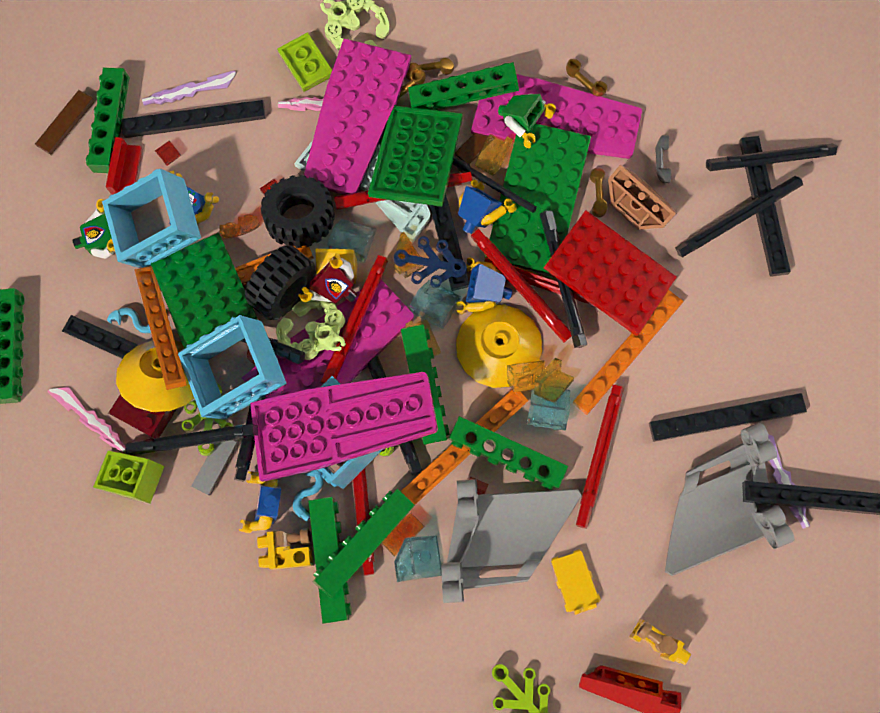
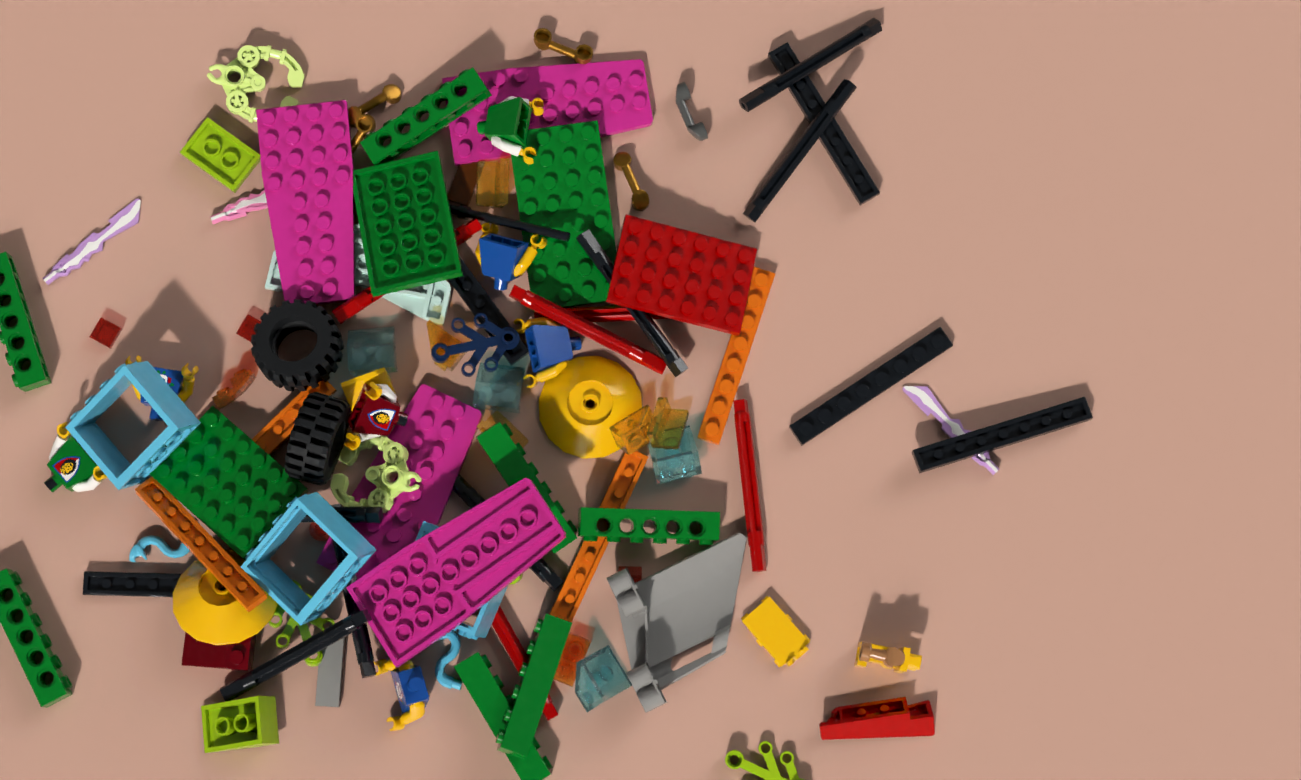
camera: 30 degrees left, 5 degrees up
(88, 418) = (128, 669): bright pink sword -> none
(123, 166) = (62, 372): red panel -> none
(193, 118) = (116, 278): black plate -> none
(280, 552) = (447, 735): yellow hips -> none
(356, 317) = (418, 443): red piece -> none
(638, 200) = (681, 175): nougat wedge -> none
(713, 515) = (895, 501): light grey panel -> none

